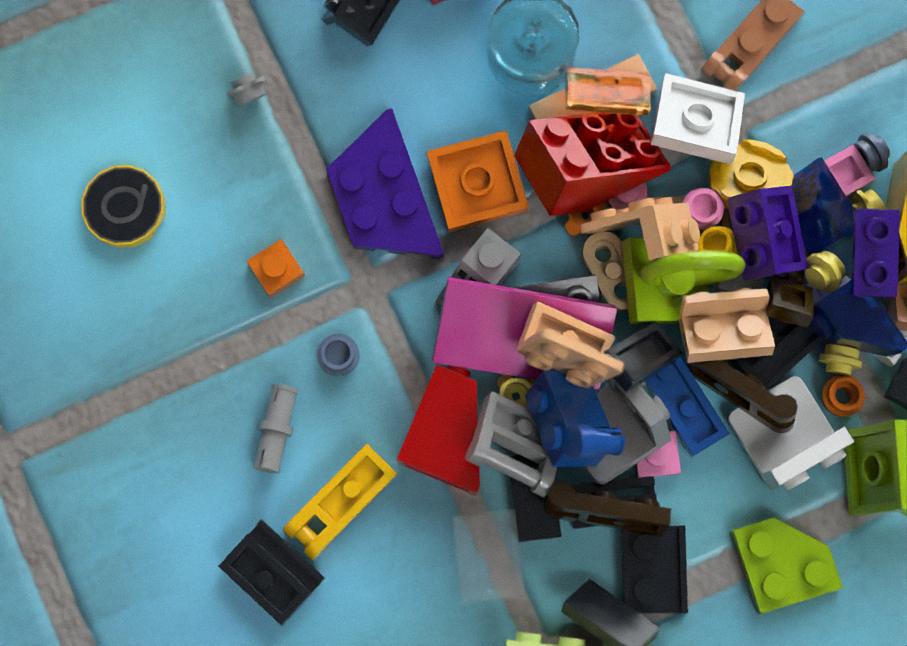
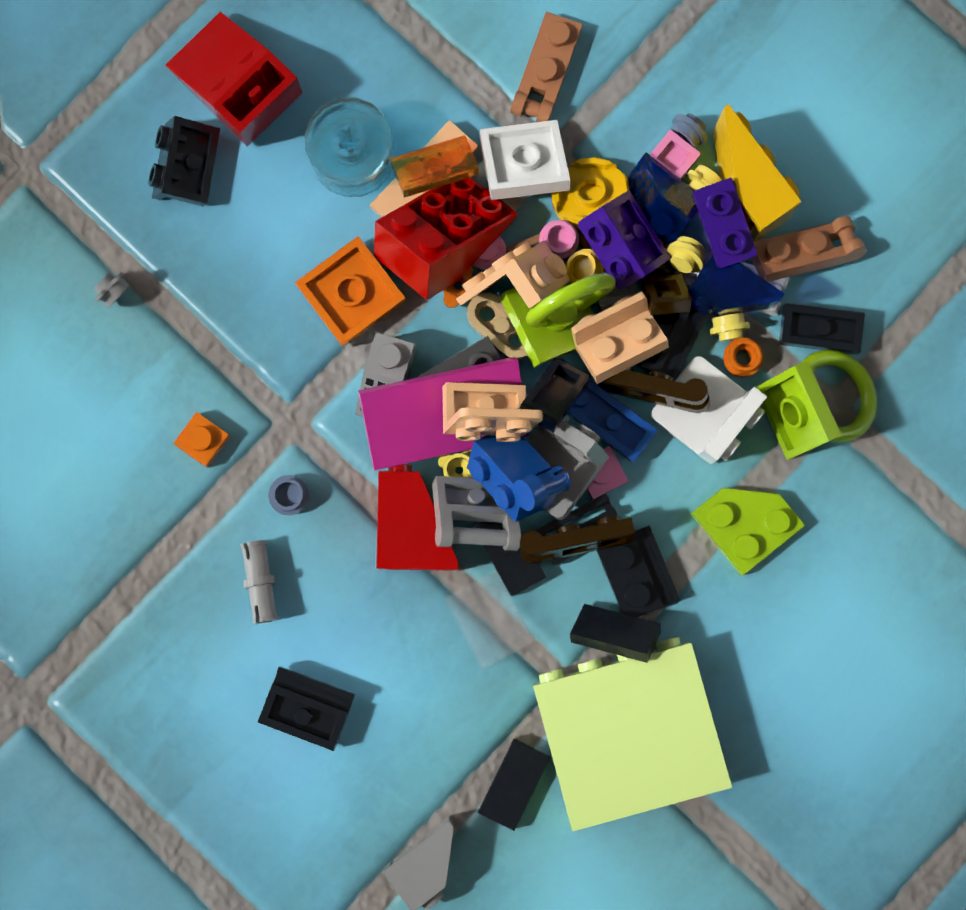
camera: 20 degrees left, 5 degrees up
(123, 206) = (42, 437): black tile -> none
(340, 501) = (342, 622): yellow plate -> none
(382, 193) = (270, 335): dark purple wing -> none

